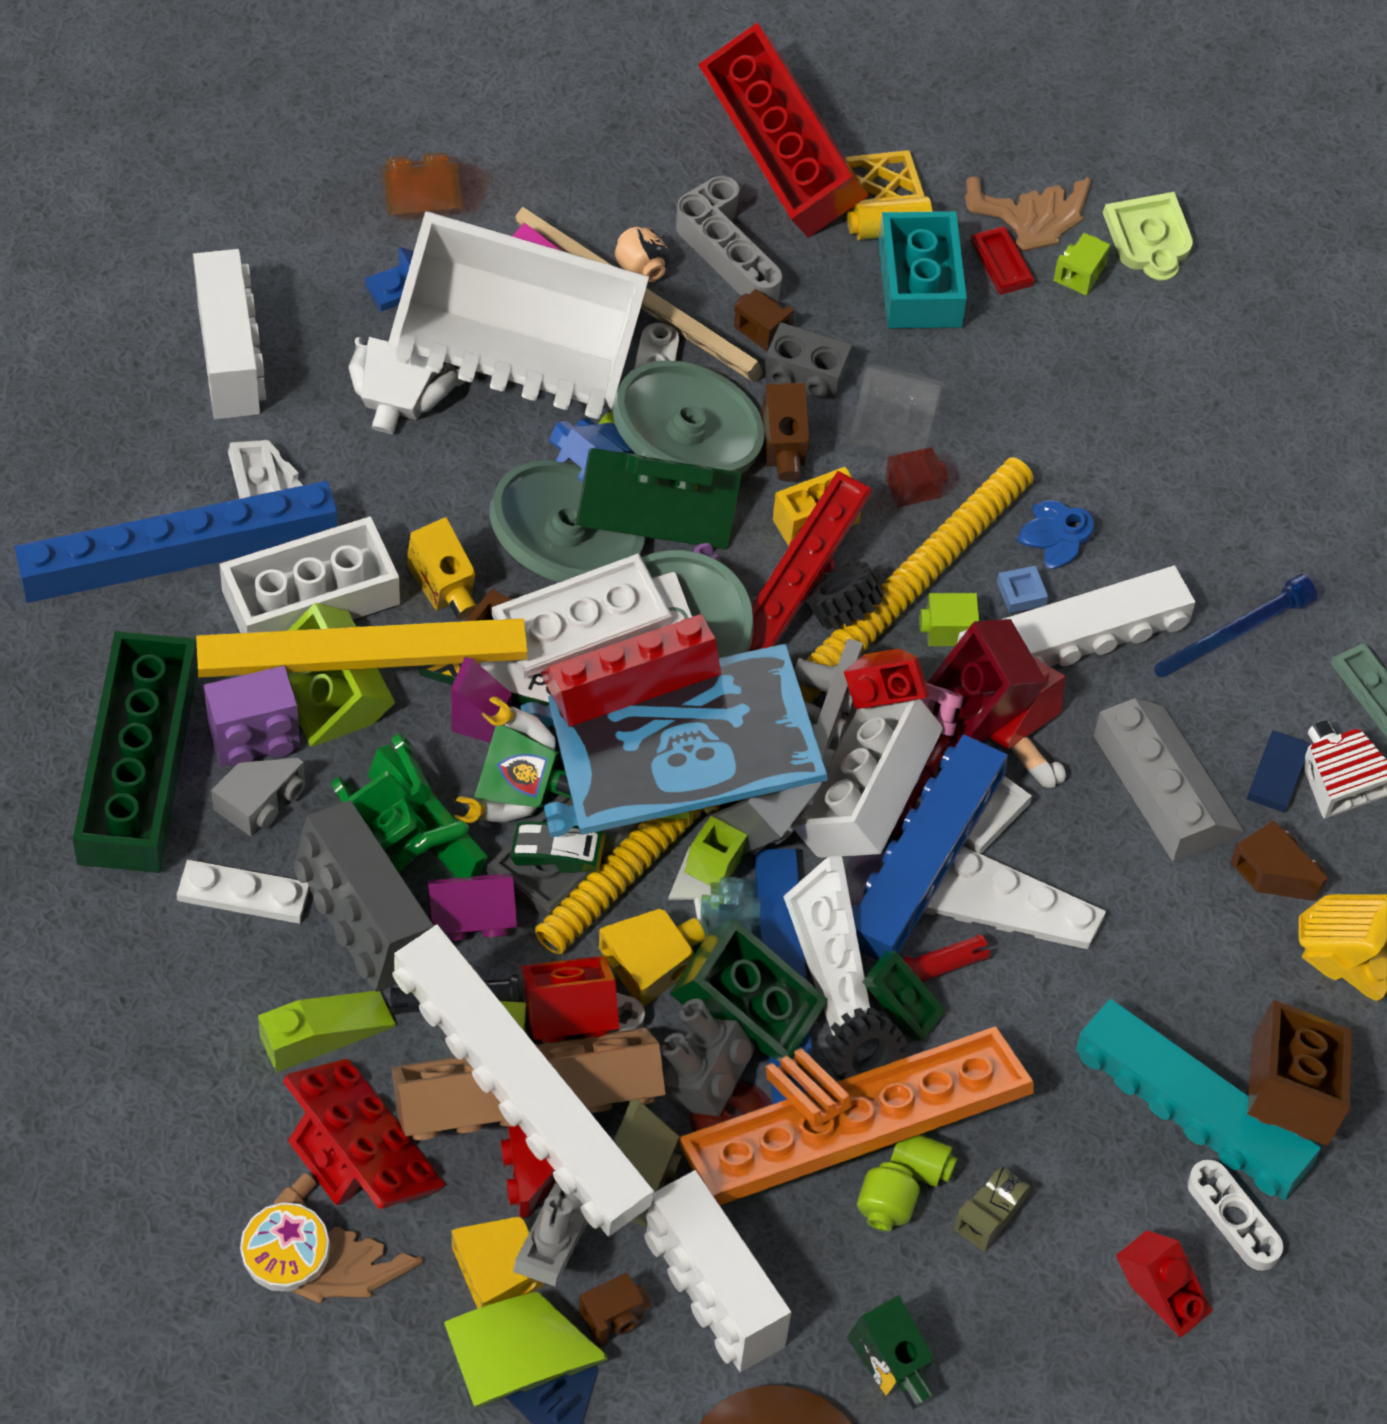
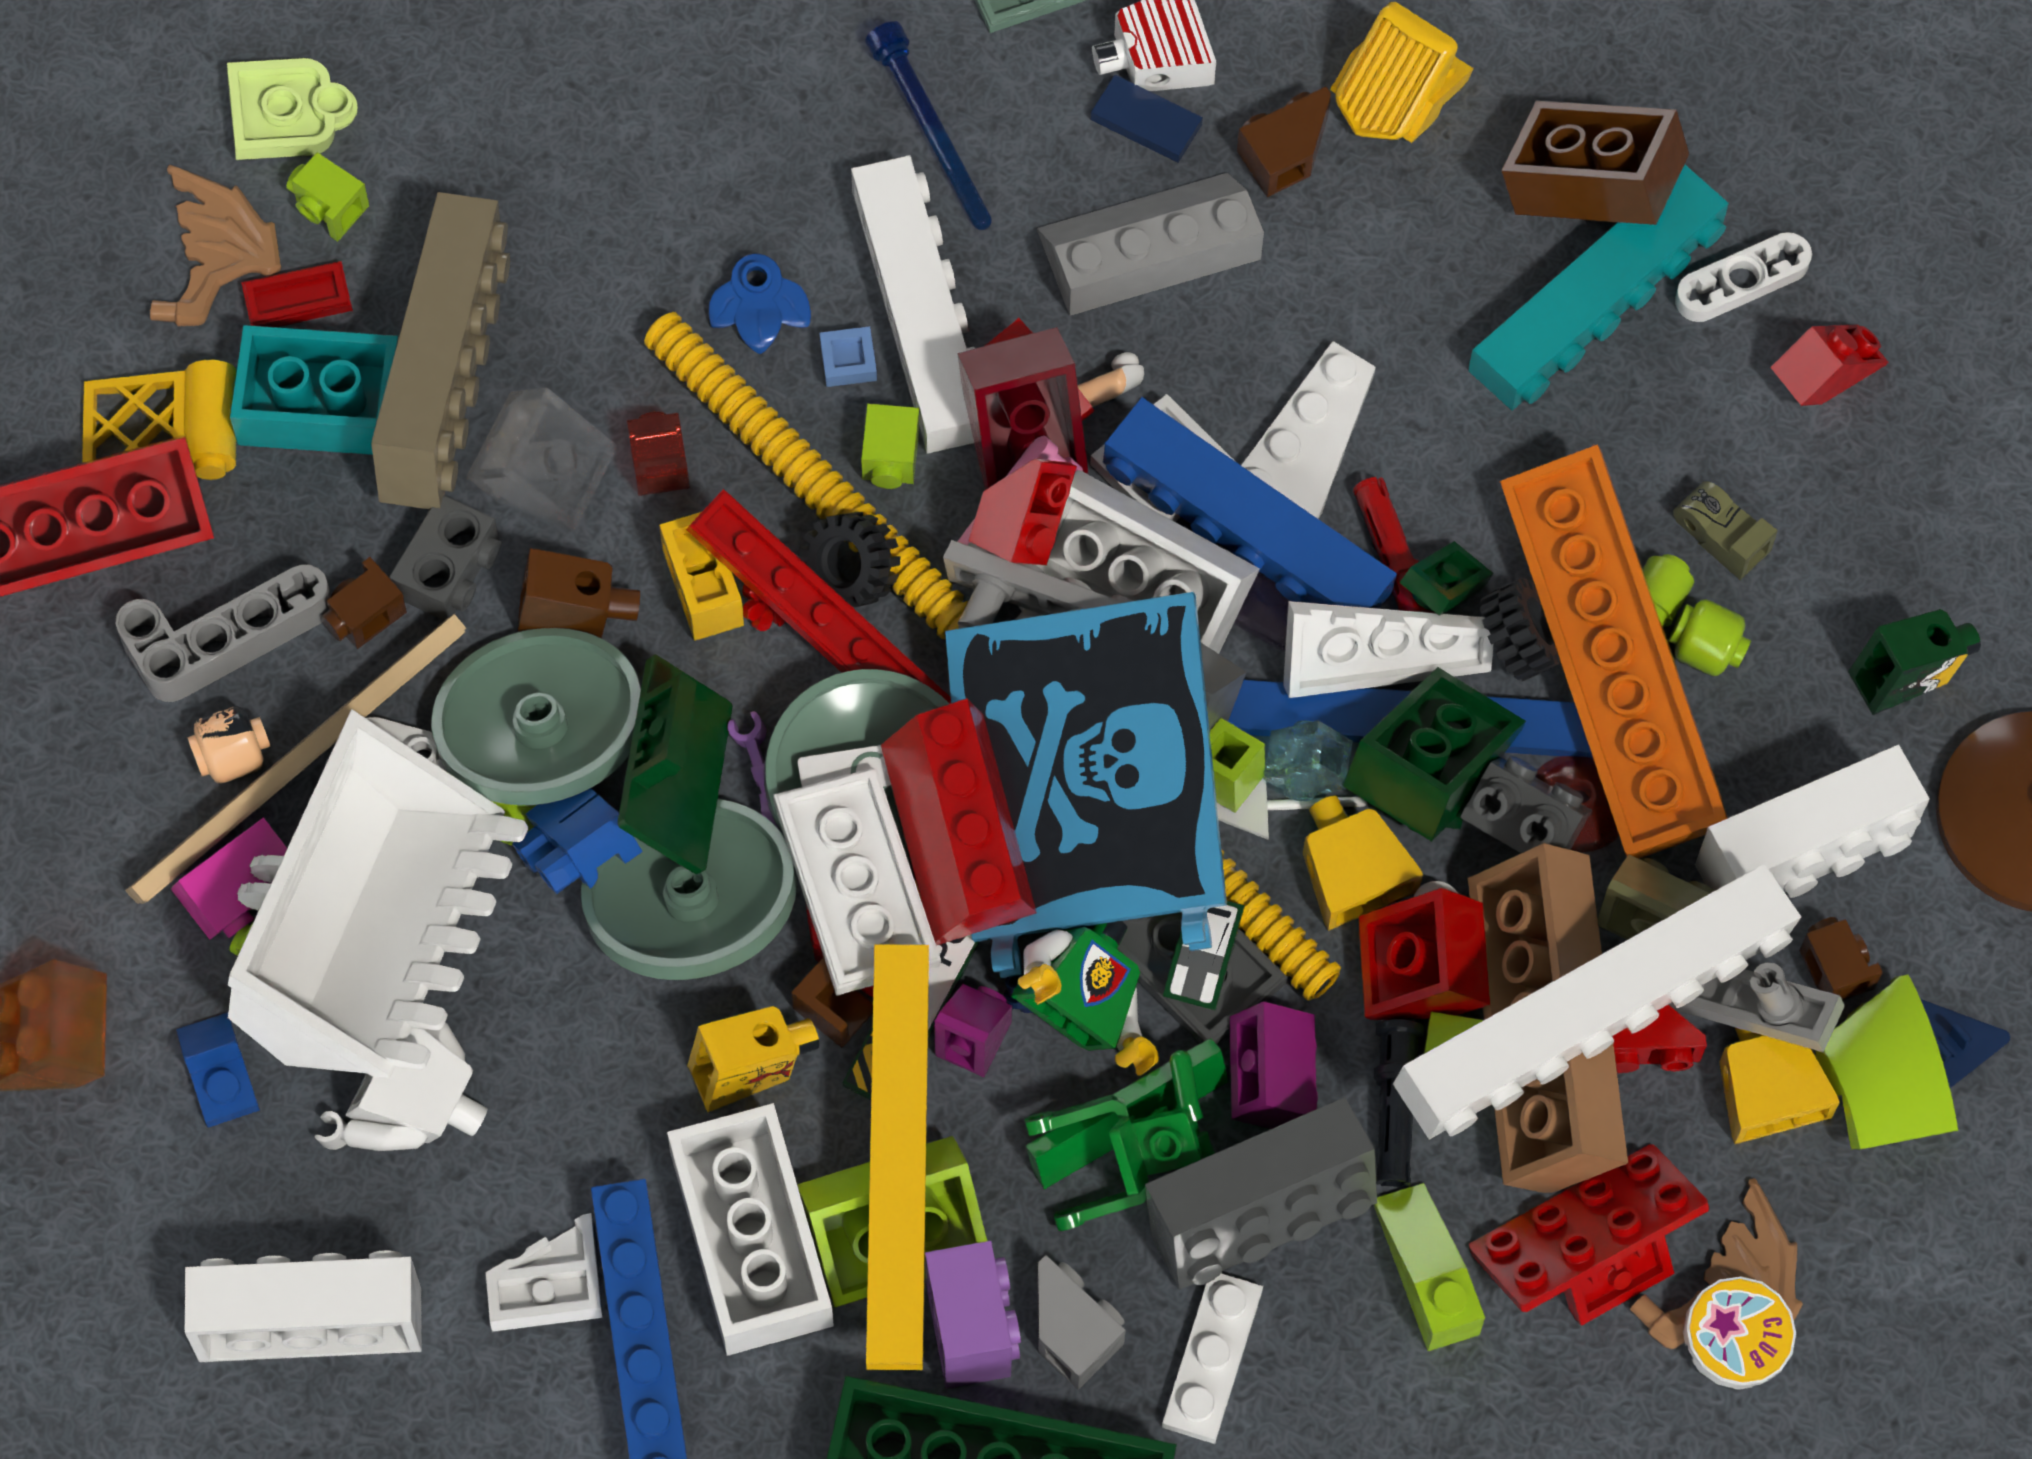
camera: 80 degrees left, 10 degrees up
(815, 1084) = (1564, 682): orange tile -> none
(959, 322) = (440, 351): none -> dark tan brick

